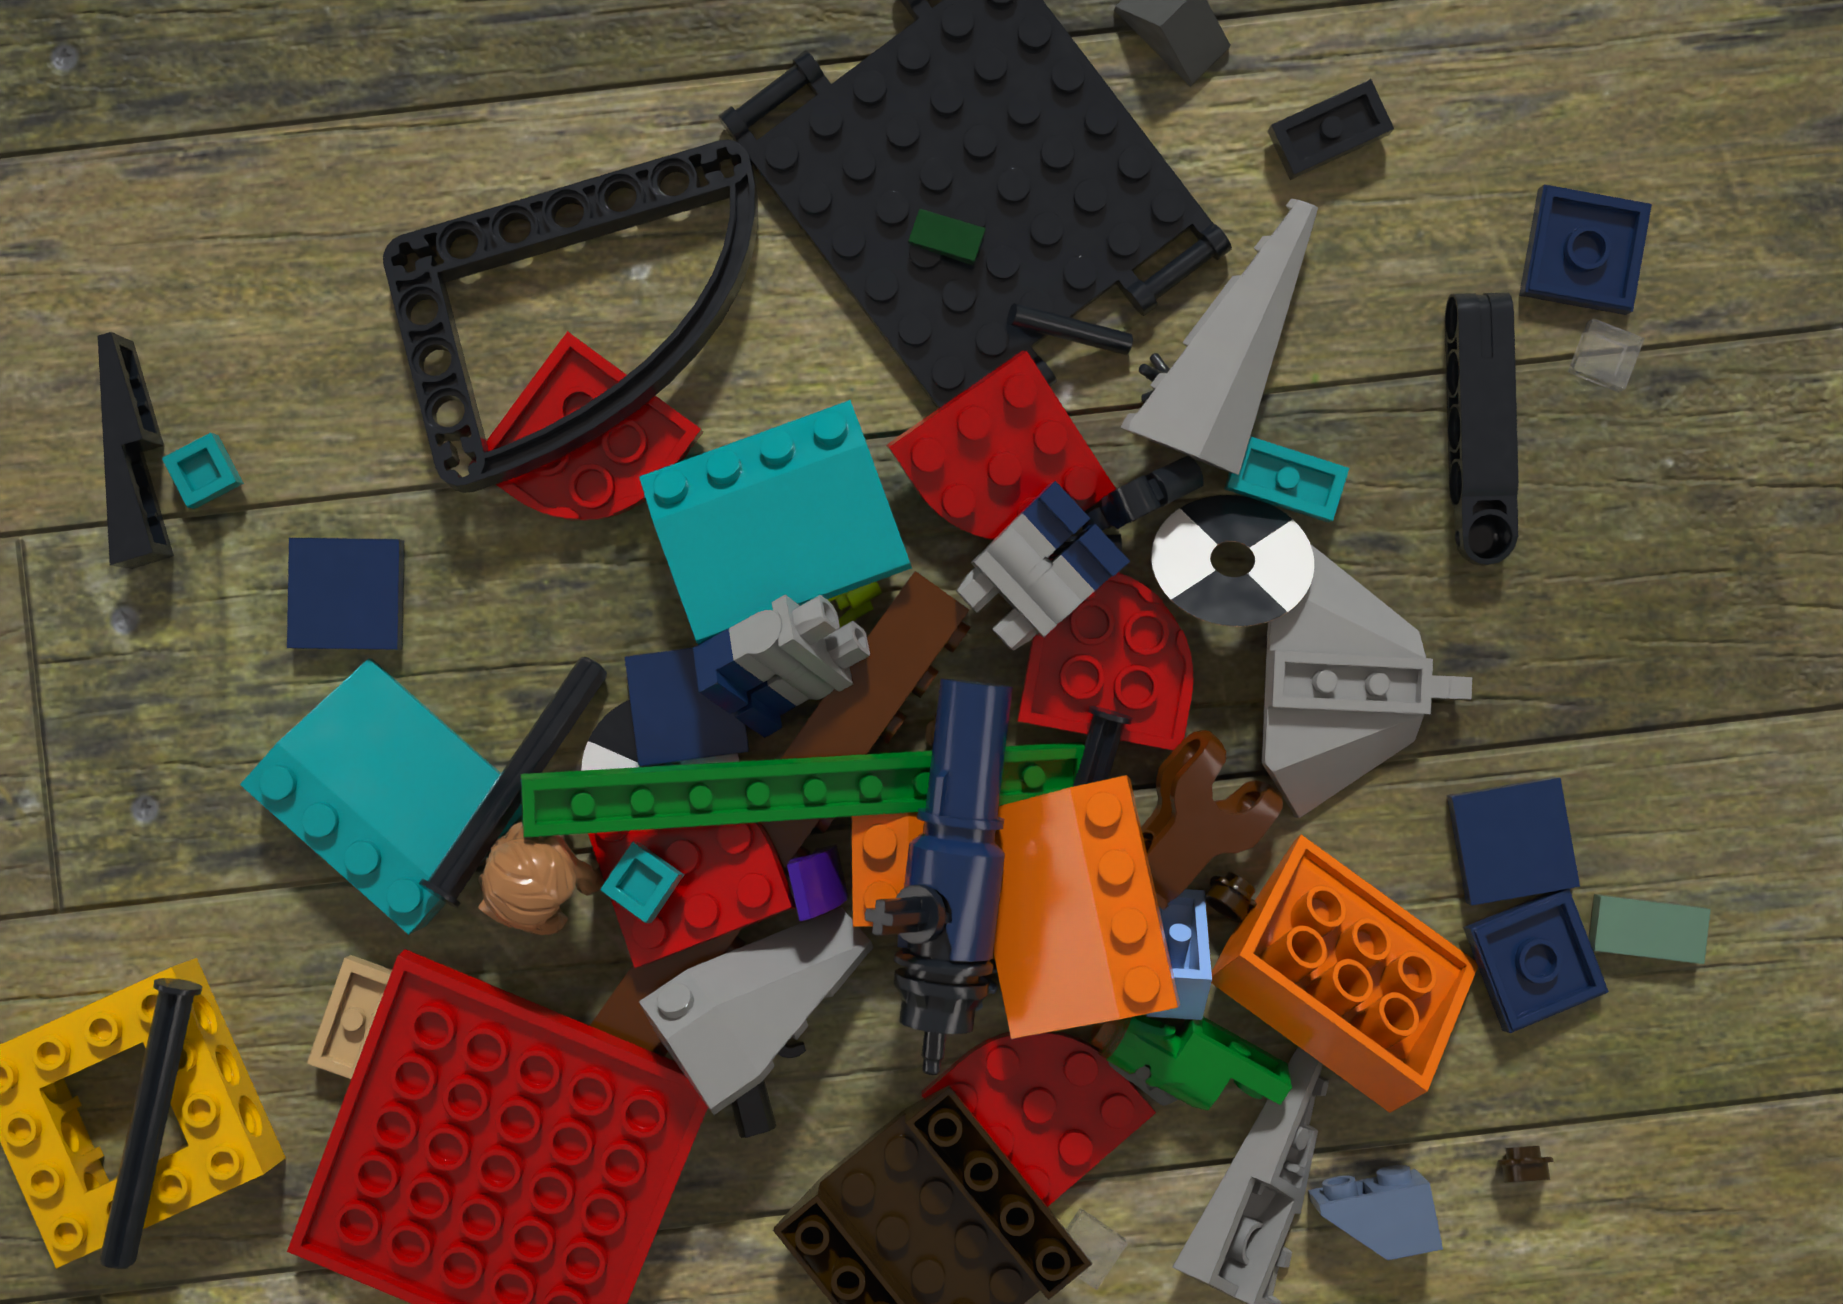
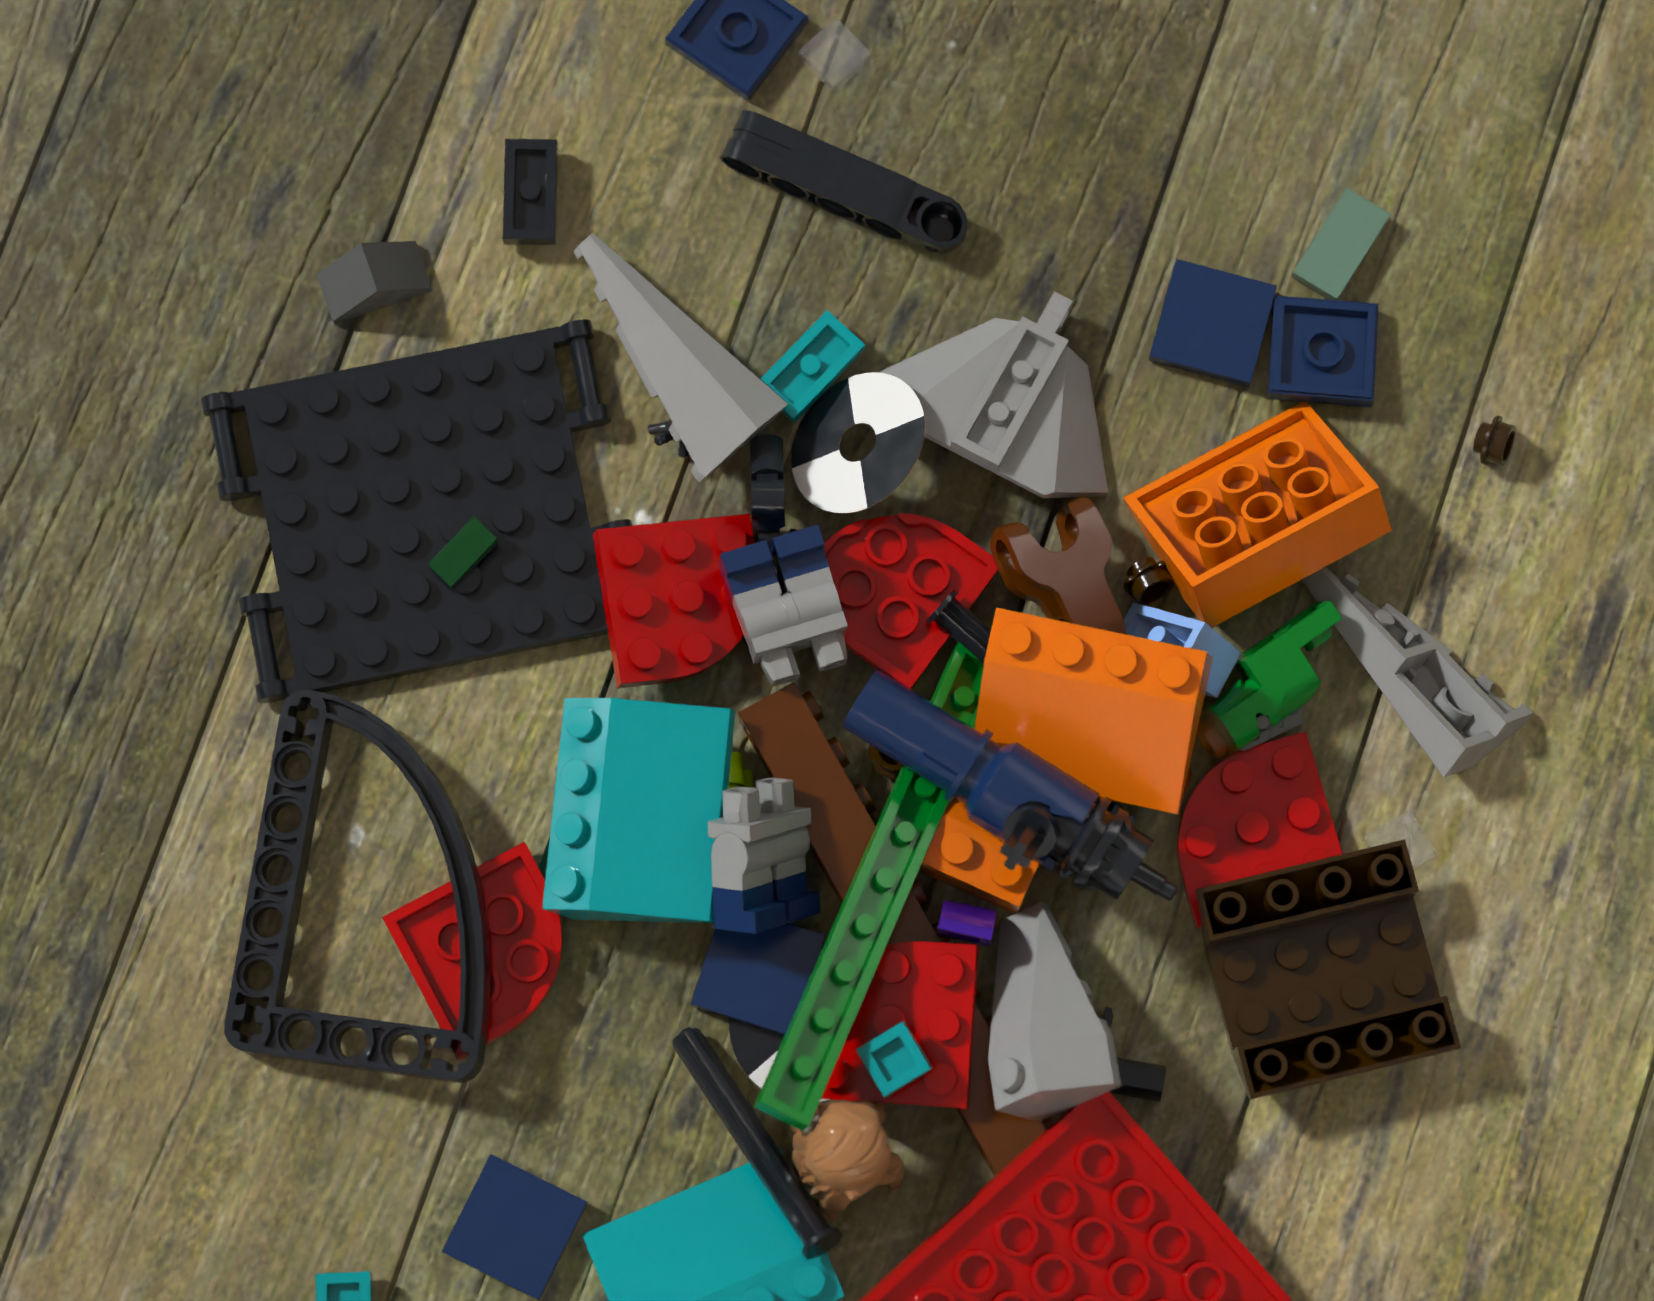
camera: 60 degrees left, 10 degrees down
(1069, 329) = (593, 487): black piece -> none
(1384, 1212) = (1482, 578): sand blue slope -> none

